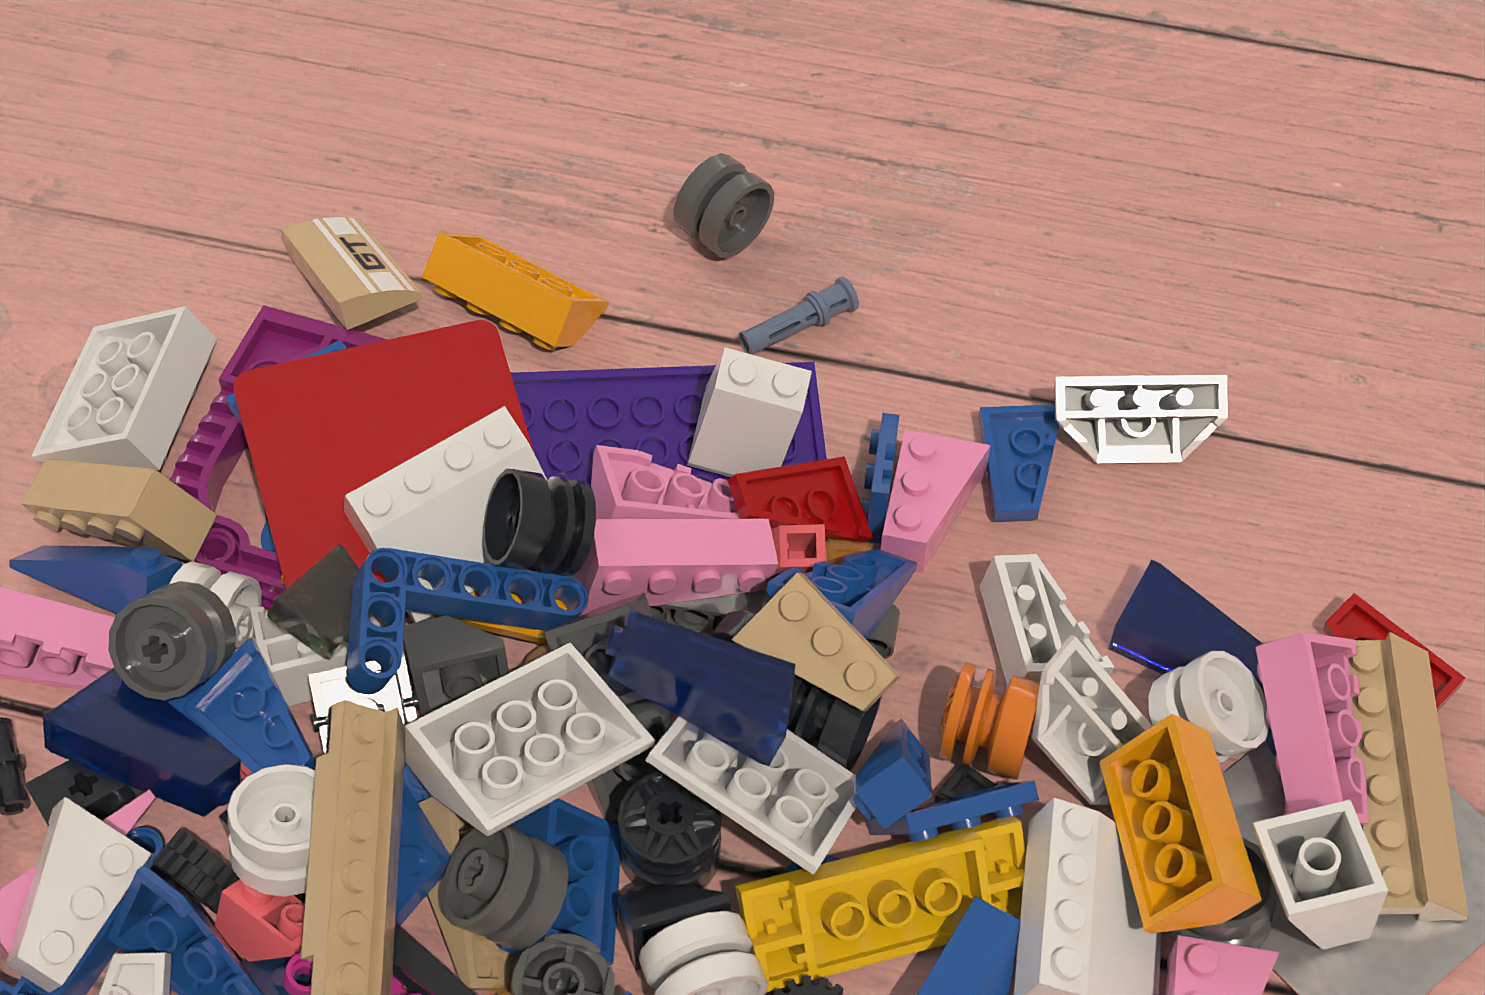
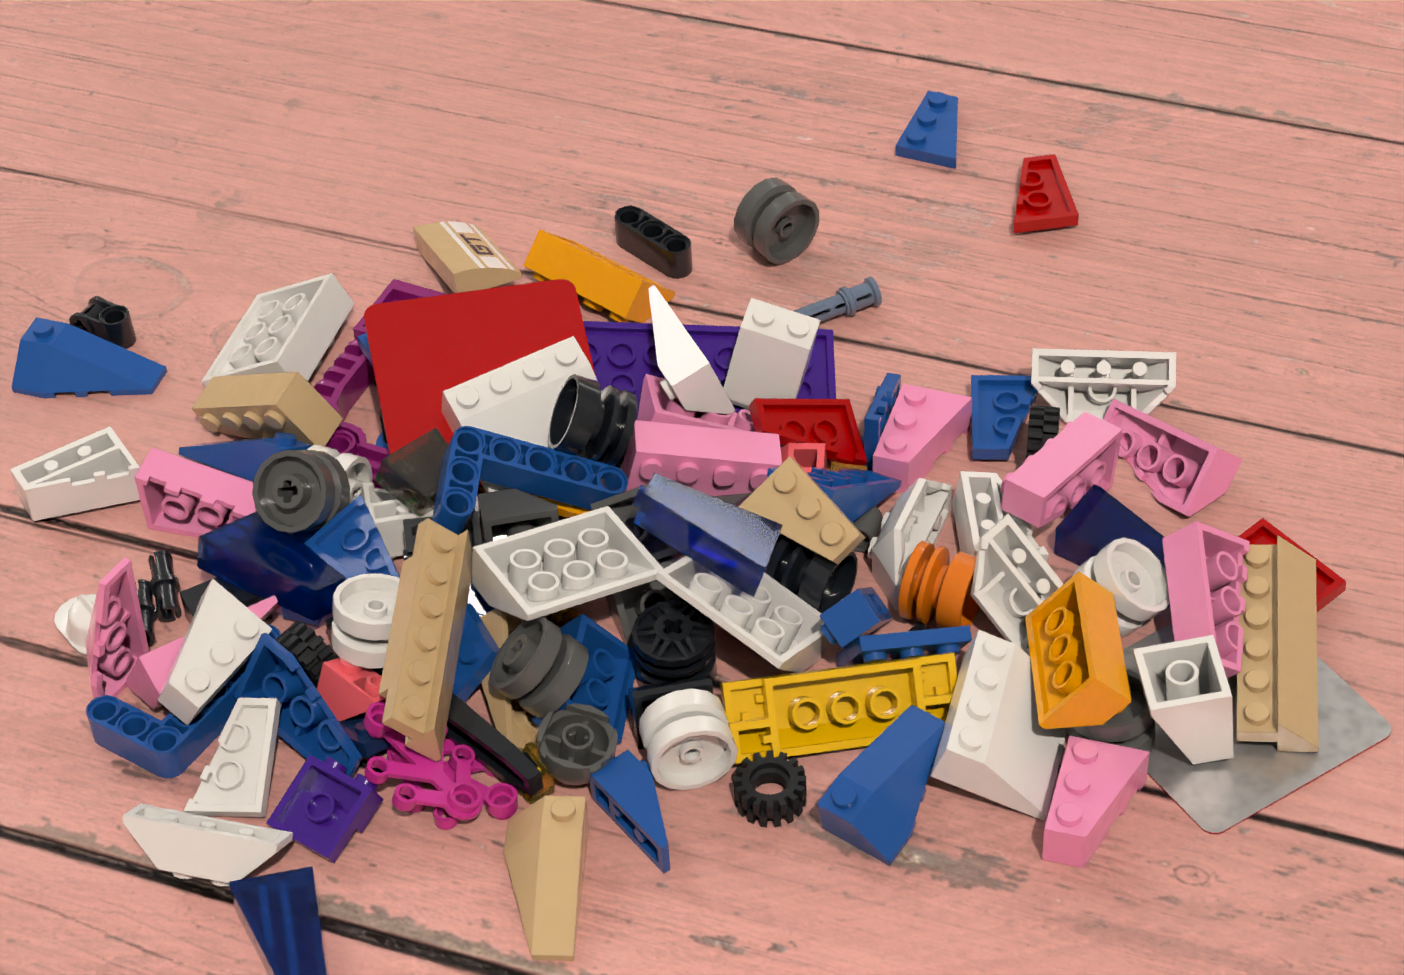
camera: 10 degrees right, 10 degrees down
(576, 235) = (653, 242): none -> black beam
(641, 431) = (683, 364): none -> white wedge
(887, 72) = (932, 131): none -> blue wing
(934, 647) = (914, 518): none -> white wedge
(1029, 156) = (1043, 196): none -> red wing
(1080, 496) = (1041, 427): none -> black tyre
(1117, 551) = (1063, 471): none -> bright pink wedge
(1237, 519) = (1171, 462): none -> bright pink wedge

